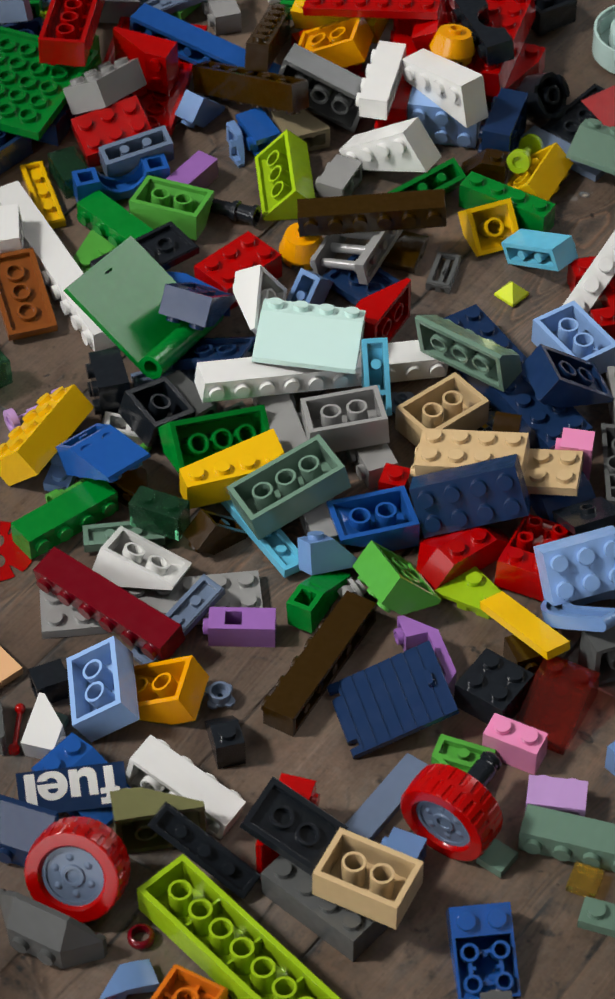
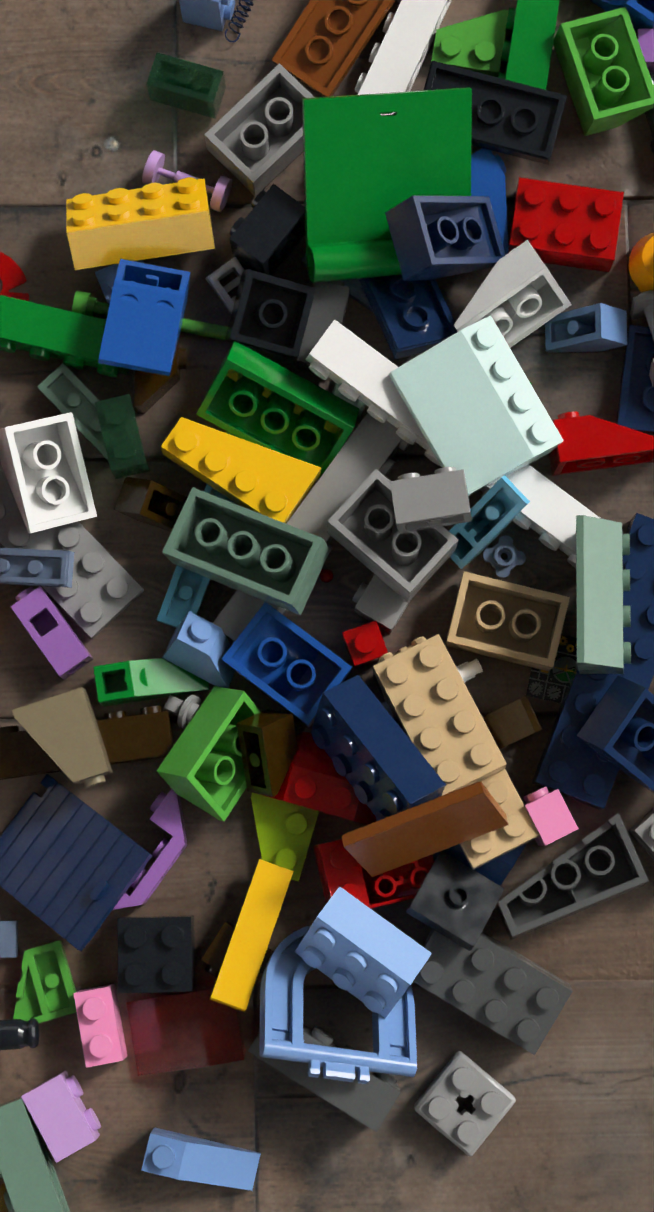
camera: 55 degrees right, 35 degrees up
(47, 355) = (261, 131): none -> light grey brick
(318, 636) = (68, 734): none -> dark tan slope
(344, 374) = (430, 499): none -> light grey brick
(418, 556) = (267, 750): none -> dark brown slope
(534, 483) = (425, 829): none -> dark orange tile

